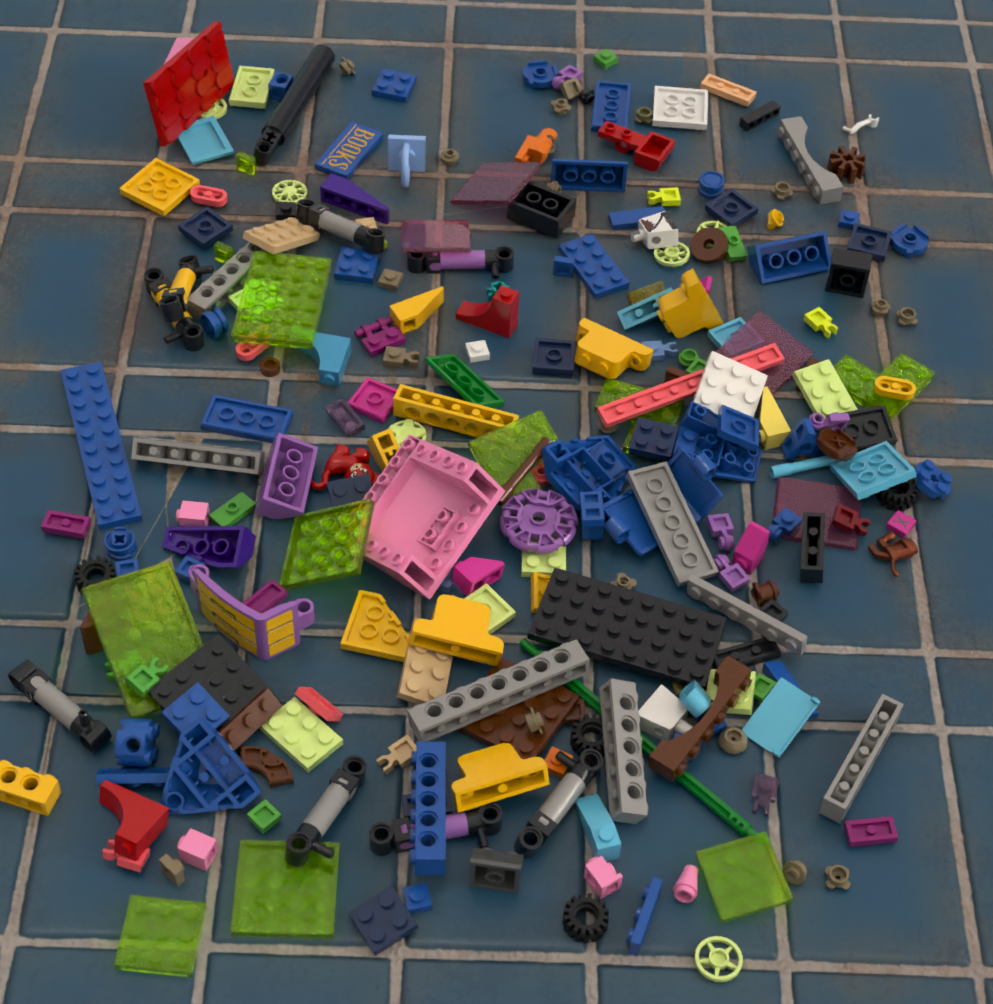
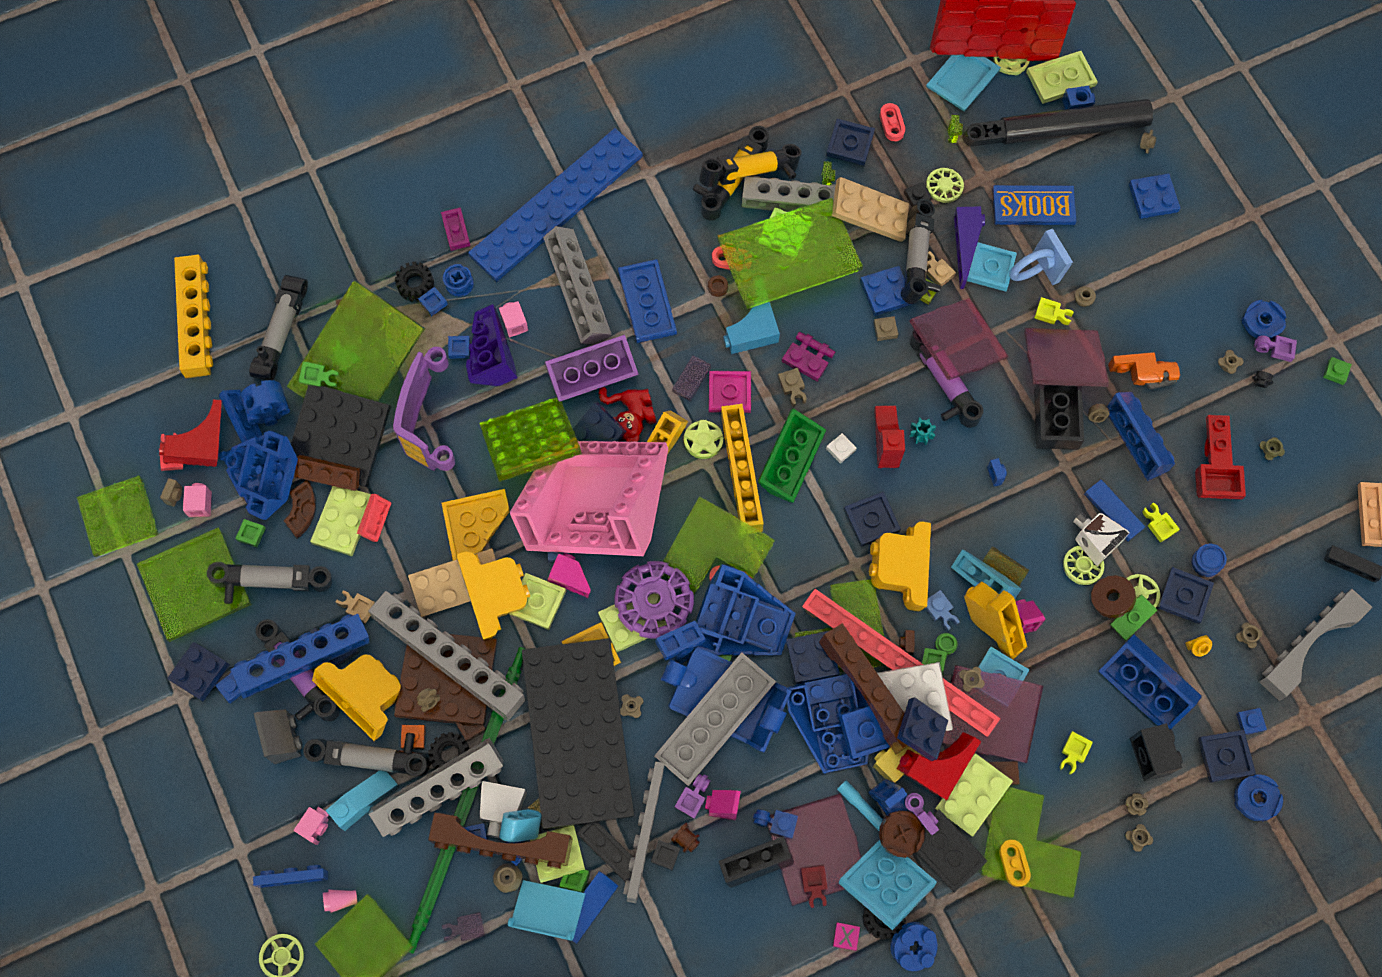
camera: 65 degrees right, 20 degrees up
(159, 186) = (878, 76): yellow plate -> none
(192, 705) = (307, 430): blue plate -> none
(214, 322) = (735, 213): blue wheel -> none
(233, 510) = (539, 345): bright green plate -> none
(267, 597) = (460, 420): magenta tile -> none
(388, 192) = (991, 266): none -> medium azure plate
(416, 310) = (851, 369): yellow slope -> none
(448, 180) = (1050, 311): none -> neon yellow plate
(523, 470) = (671, 555): reddish brown piece -> none
(570, 88) = (1261, 359): dark tan plate -> none
(585, 931) = (255, 829): black tyre -> none
(594, 266) = (1019, 499): blue plate -> none
(611, 104) = (1265, 410): blue tile -> none
(665, 405) = (847, 654): none -> reddish brown arch
(680, 108) = (1308, 478): white plate -> none
(721, 526) = (745, 765): medium lavender plate -> none
(732, 342) = (975, 673): none -> dark tan plate
(763, 380) = (922, 729): none -> dark blue plate
(794, 397) = (944, 773): none -> red arch
(847, 164) = (1338, 695): reddish brown gear -> none
(897, 551) = (807, 946): copper piece -> none

